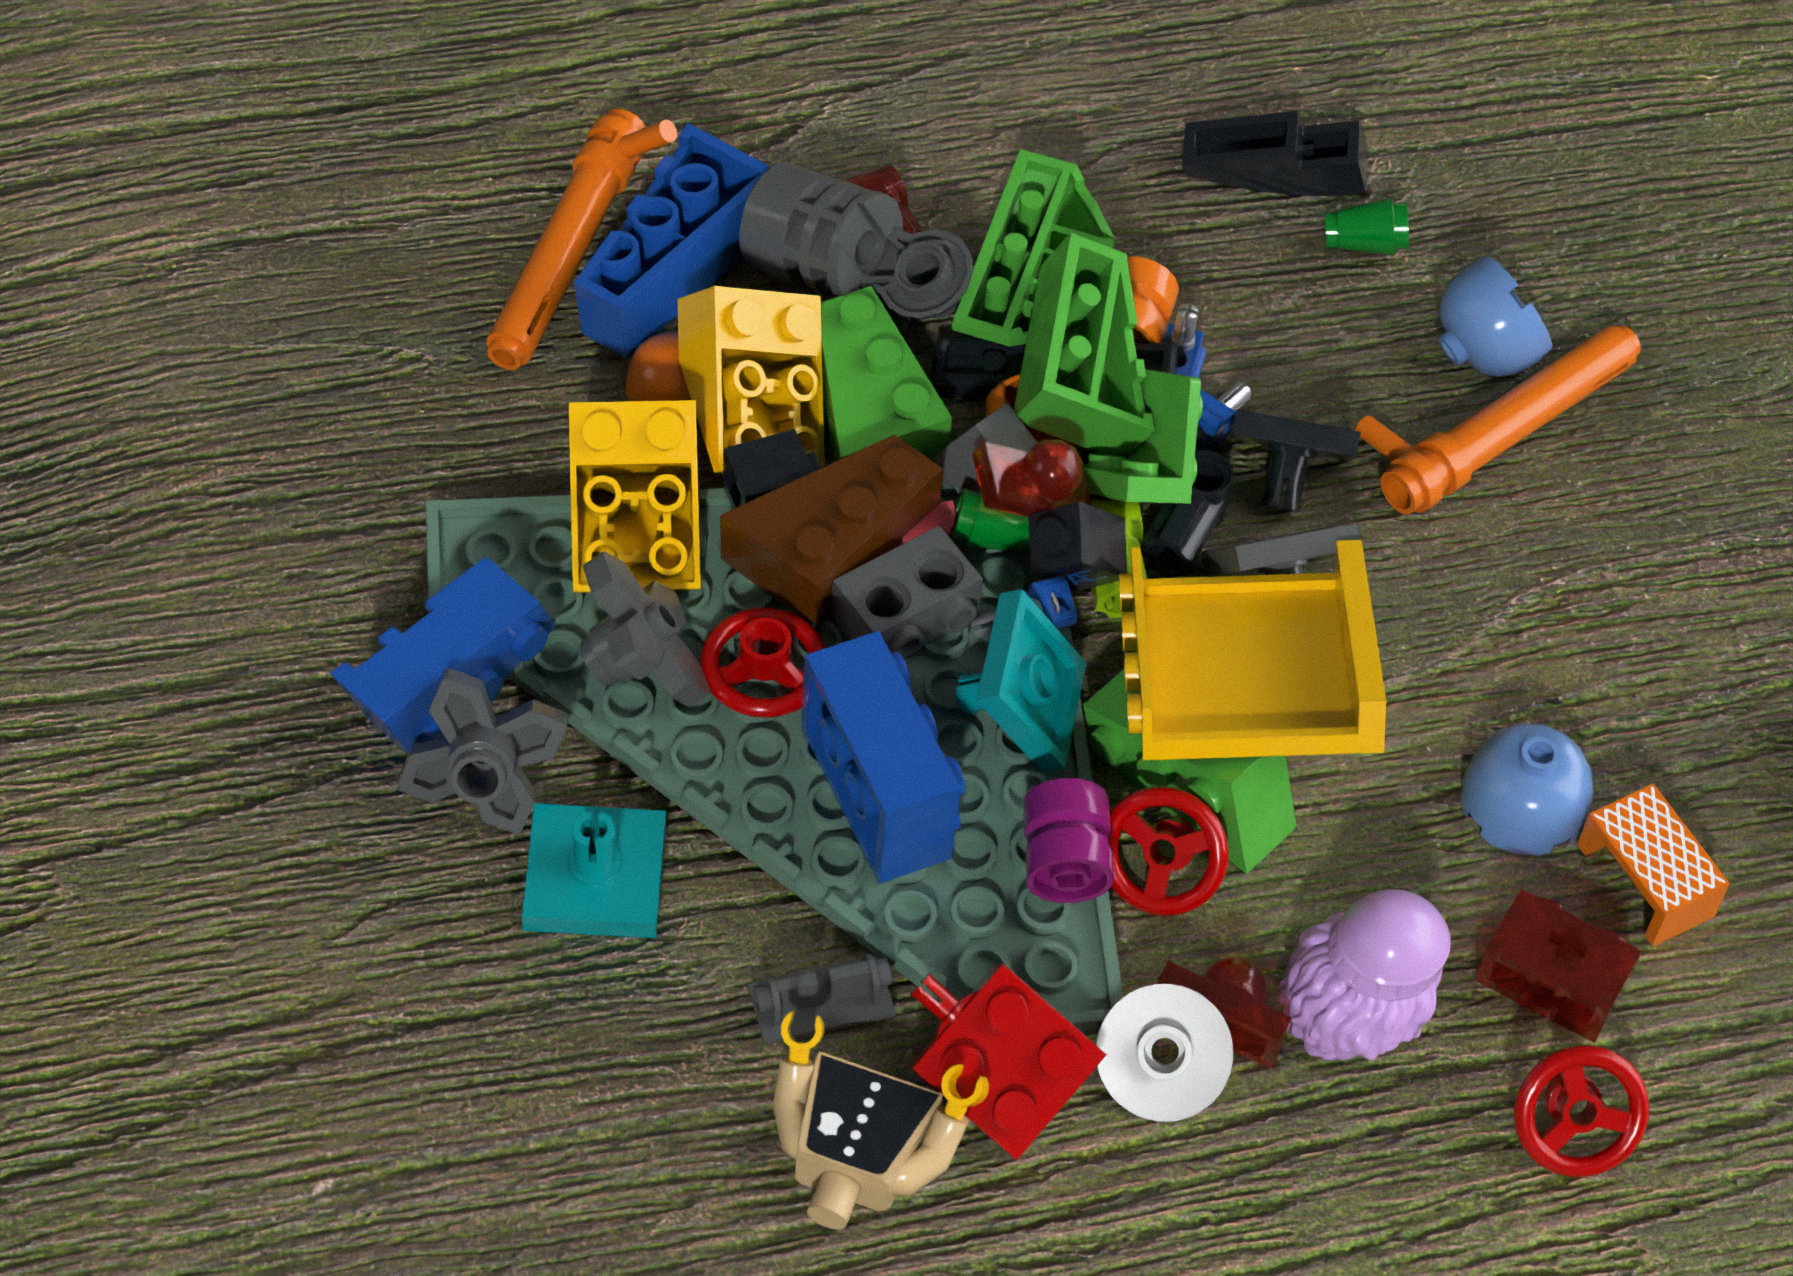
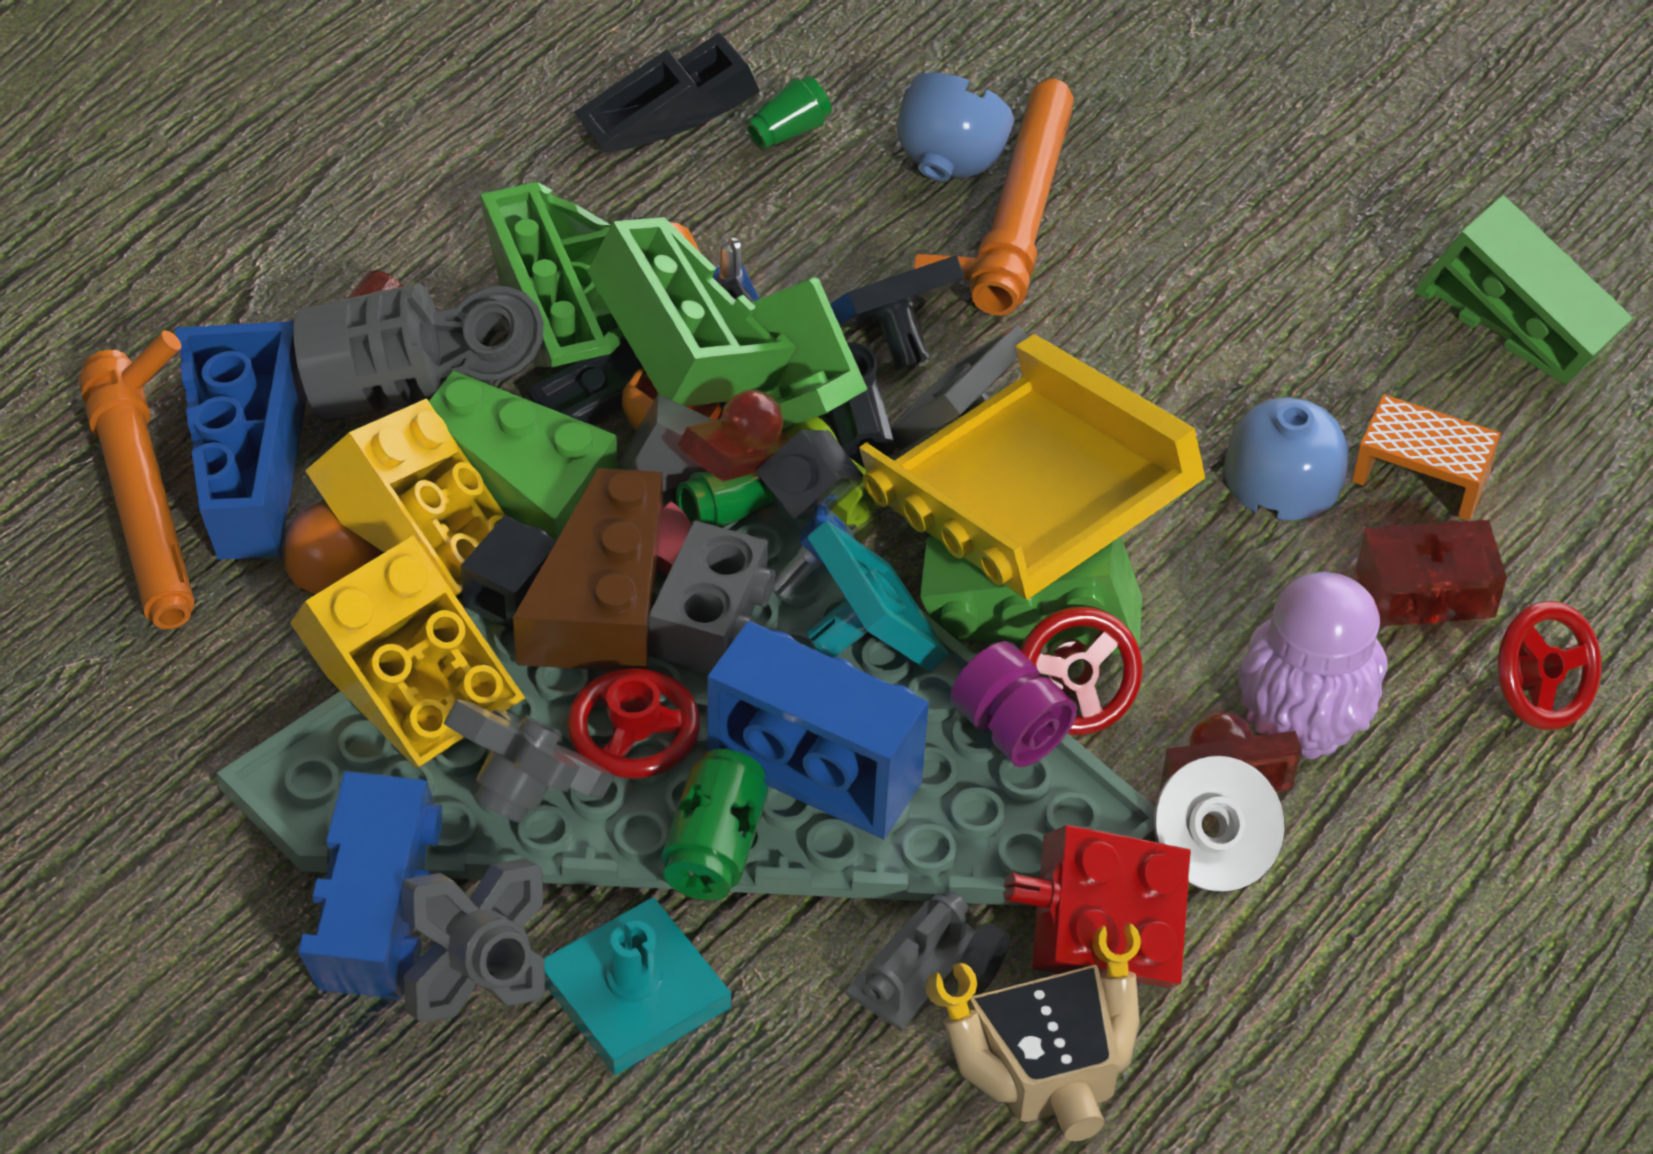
camera: 35 degrees left, 5 degrees down
(757, 768) = (706, 851): none -> green piece
(871, 1030) = (985, 954): none -> black piece

